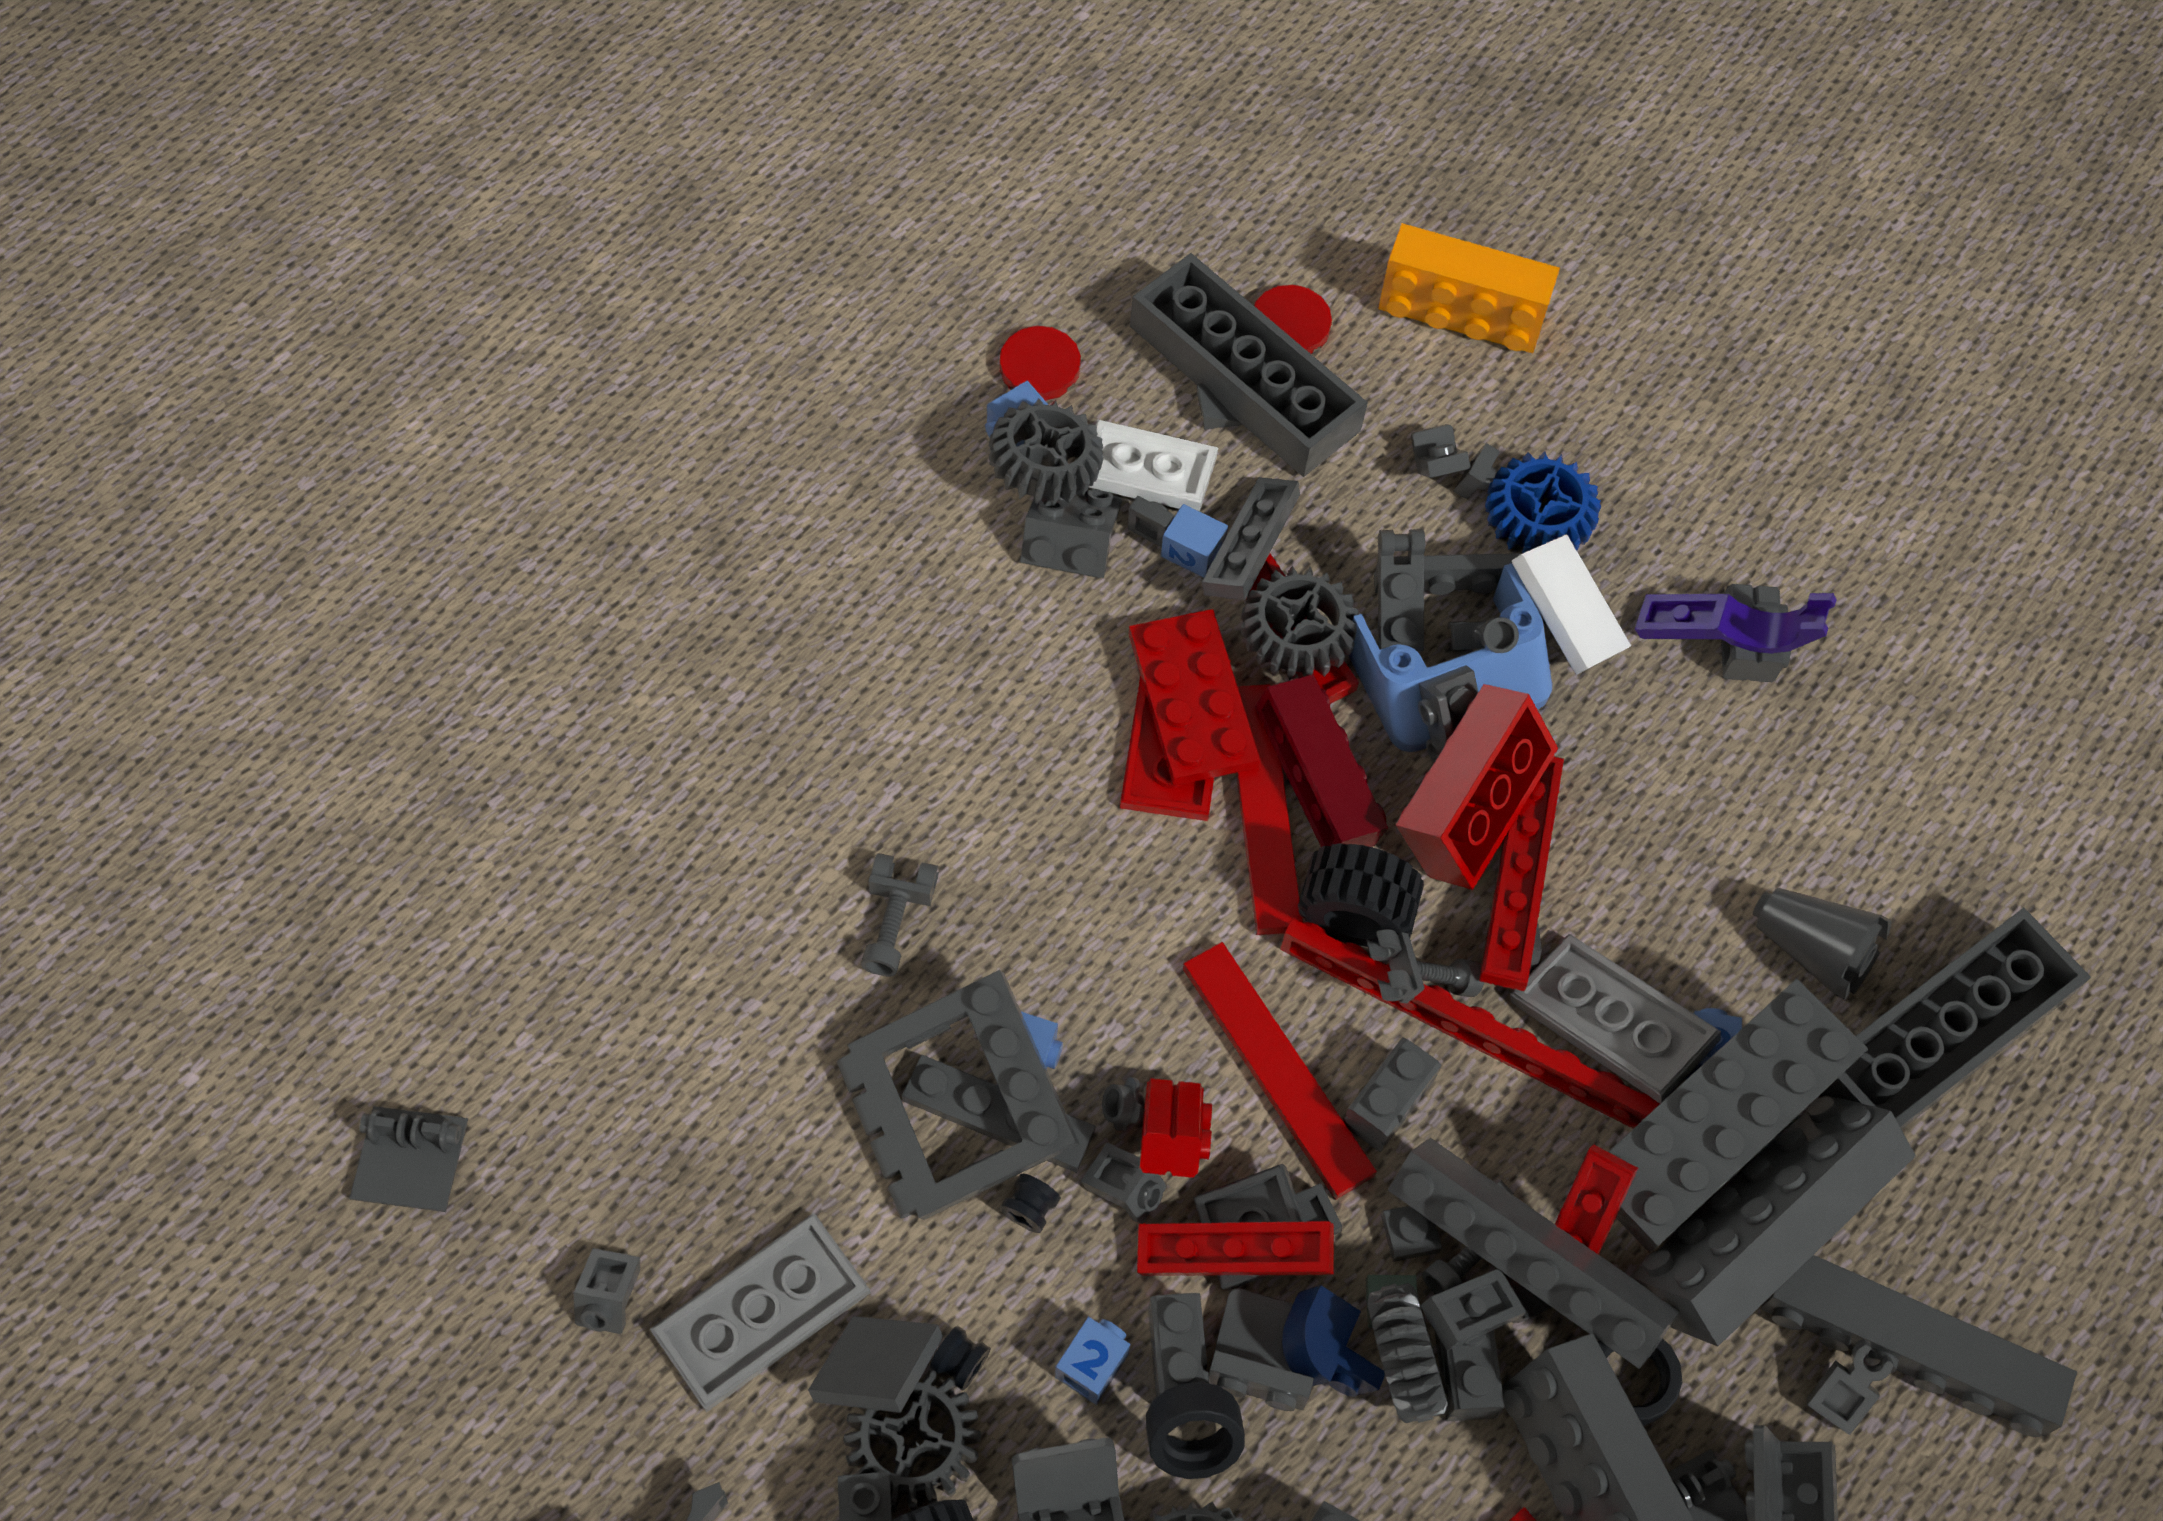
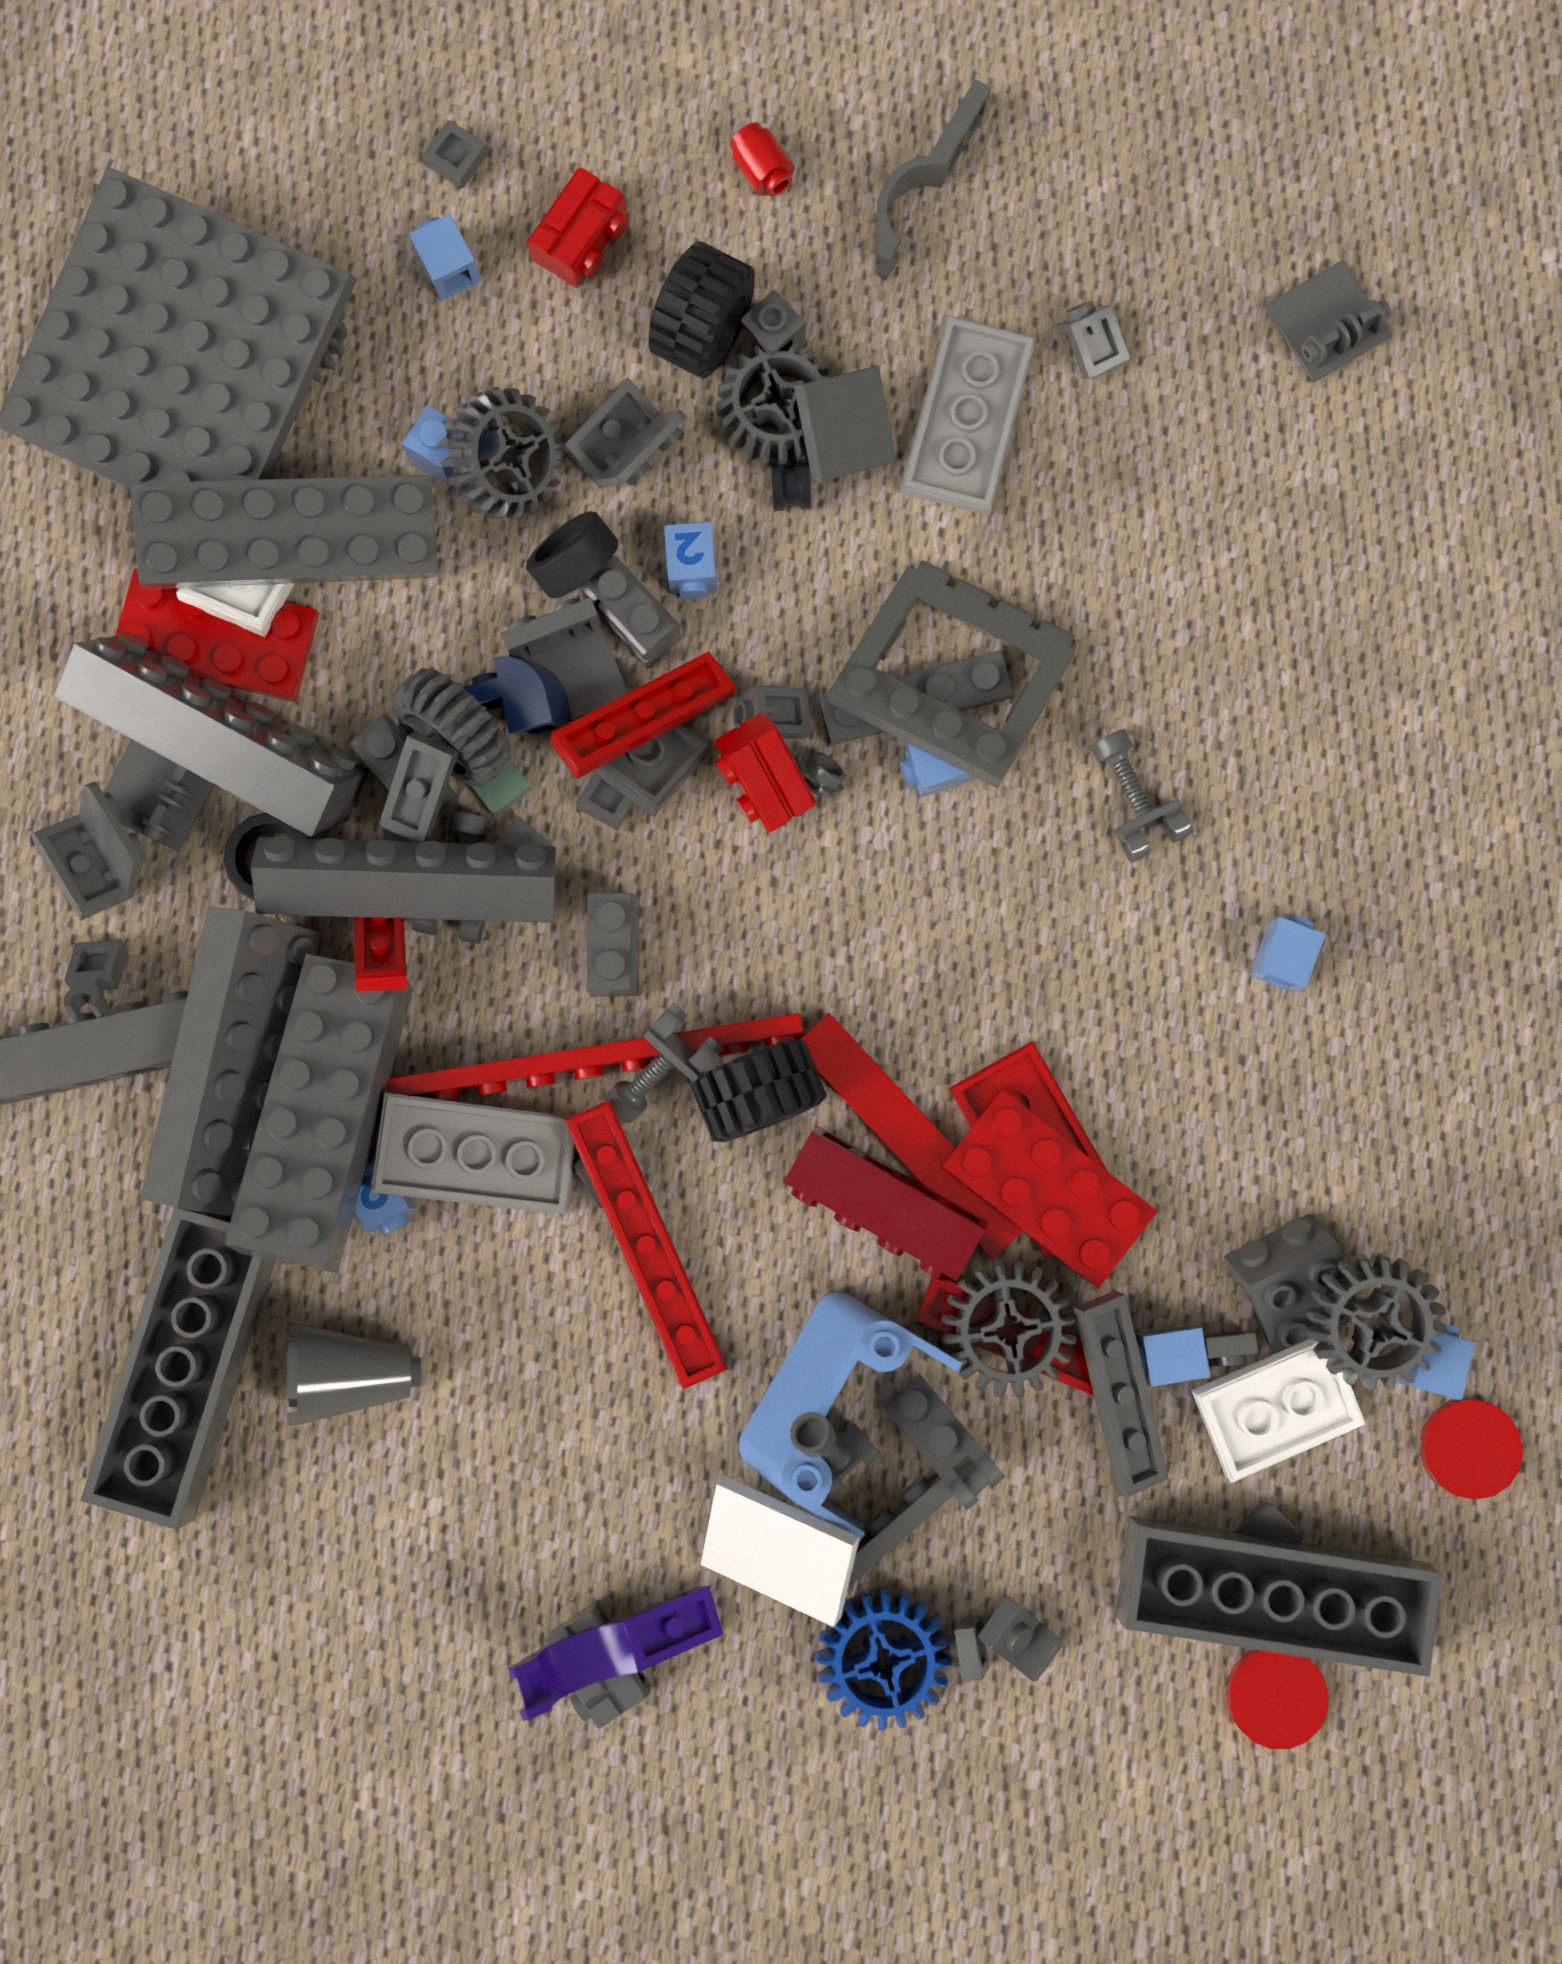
camera: 145 degrees right, 20 degrees up
(885, 723) = (1288, 953): none -> medium blue brick
(1030, 1203) = (831, 639): black wheel -> none
(1279, 1071) = (724, 906): red tile -> none
(1445, 704) = (803, 1340): dark grey bracket -> none
(1467, 288) = (1132, 1864): light orange brick -> none
(1477, 786) = (733, 1279): red brick -> none

